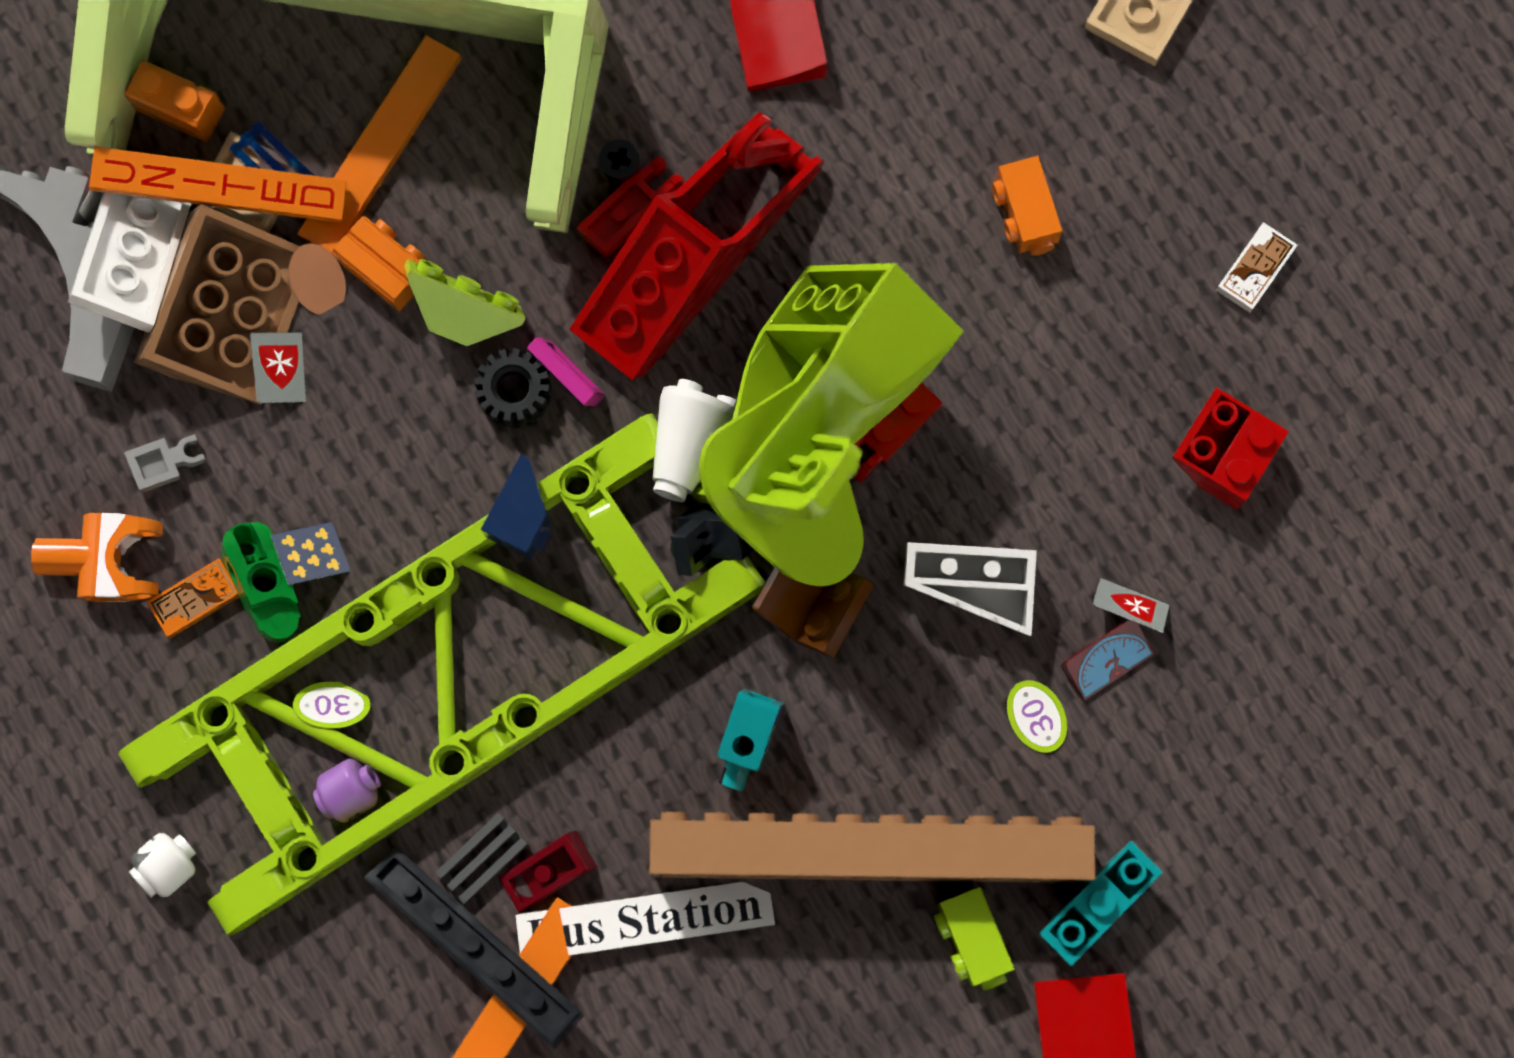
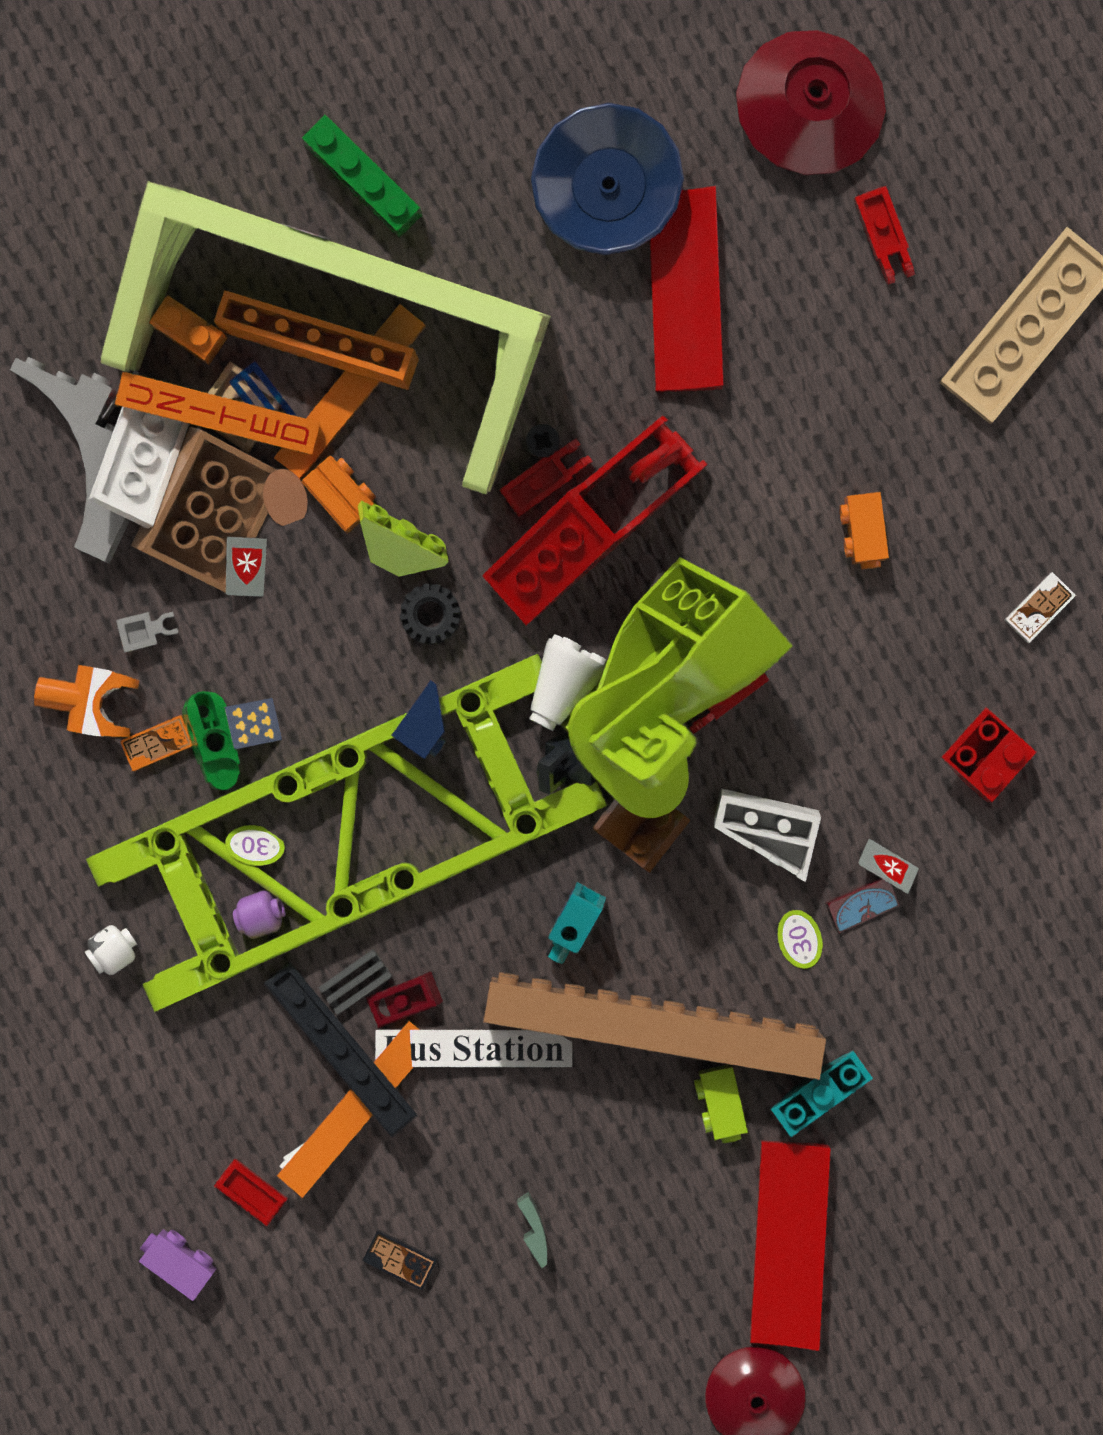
camera: 10 degrees right, 10 degrees up
(330, 84) = (316, 340): none -> orange brick
(566, 371) = (474, 608): dark pink tile -> none

